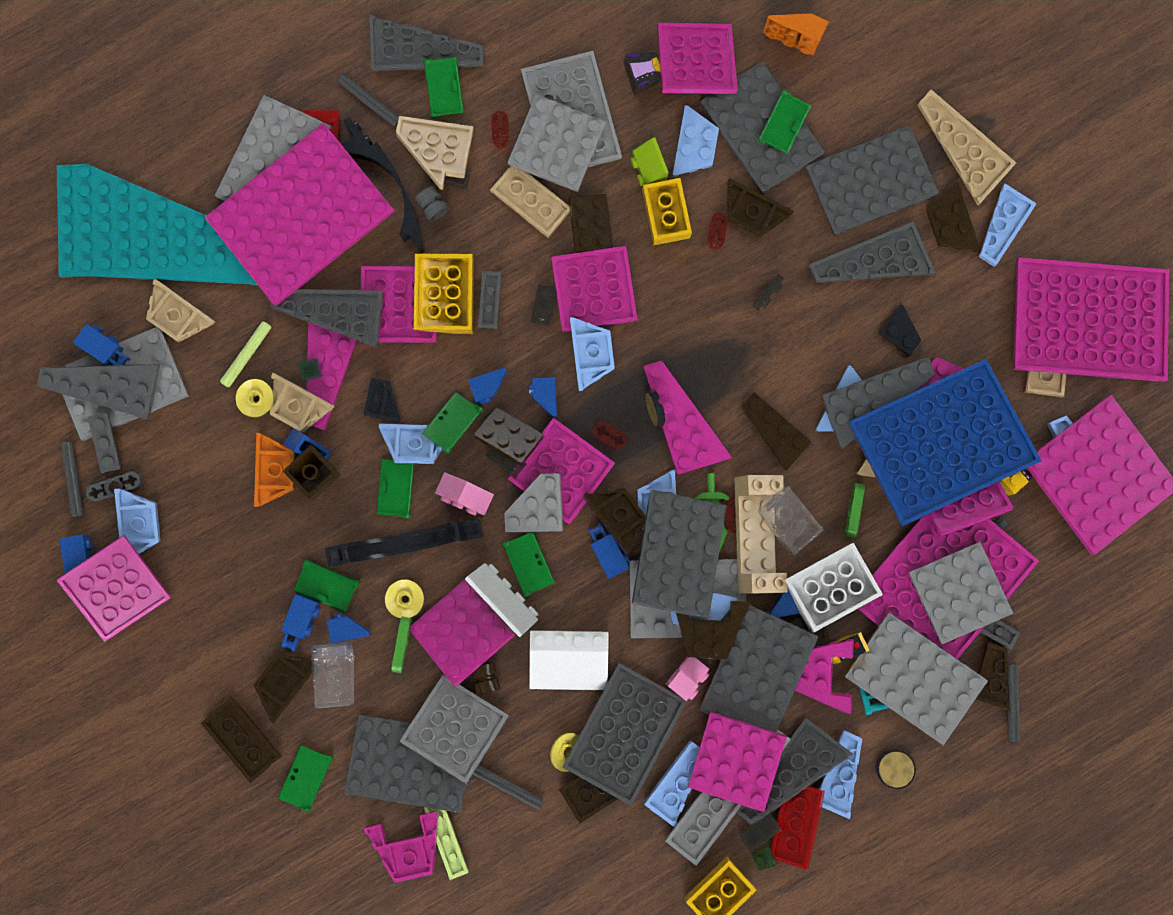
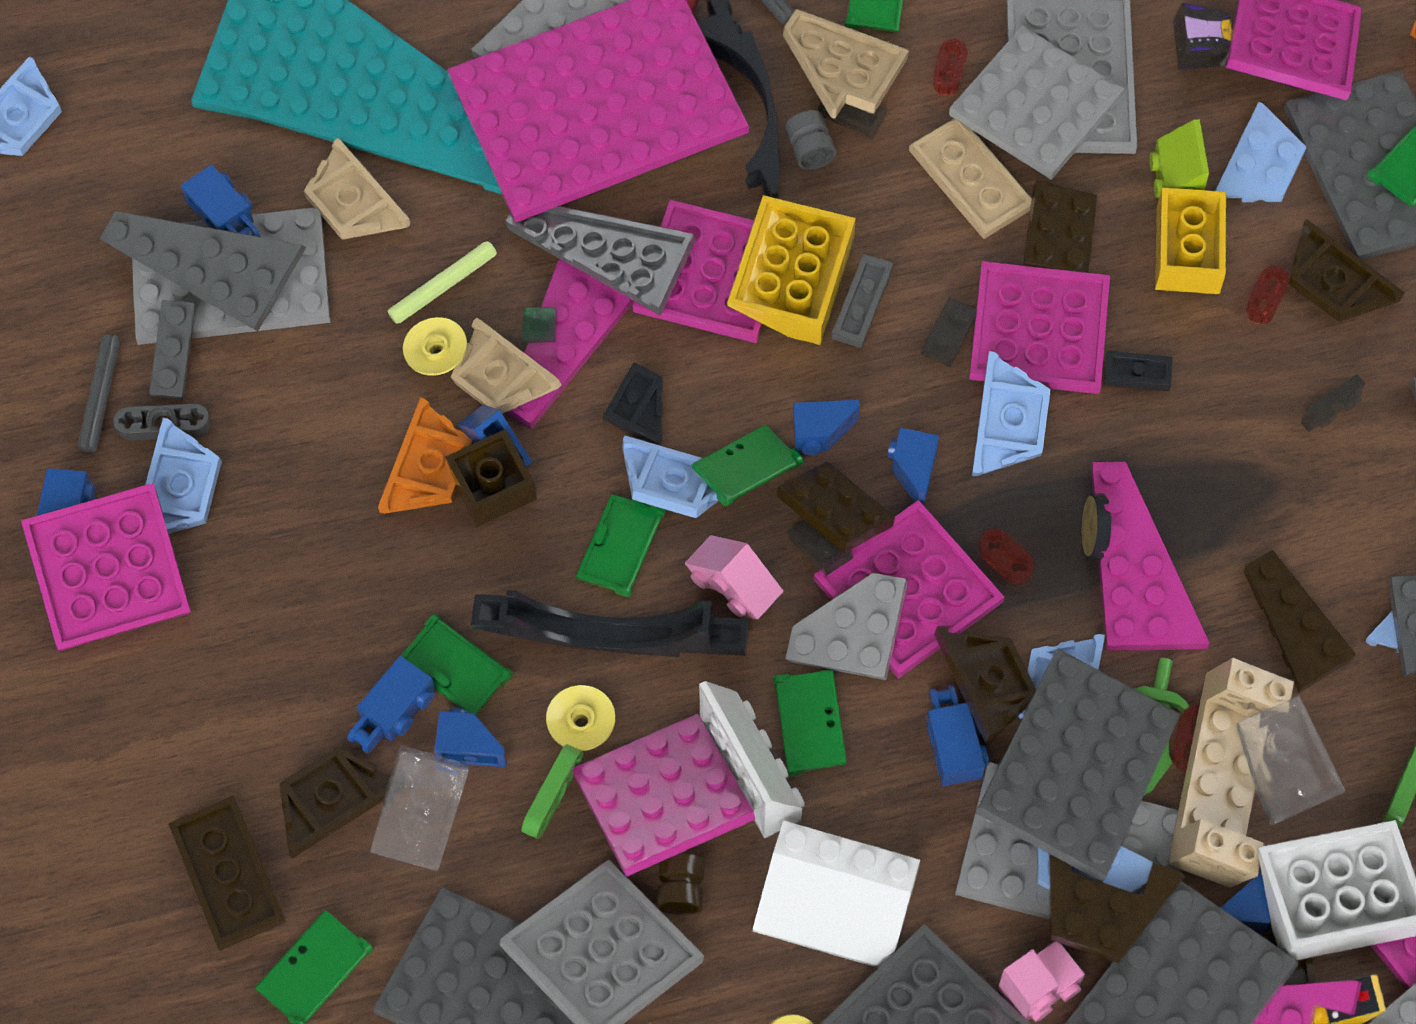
camera: 20 degrees right, 20 degrees down
(655, 301) = (1138, 371): none -> black plate

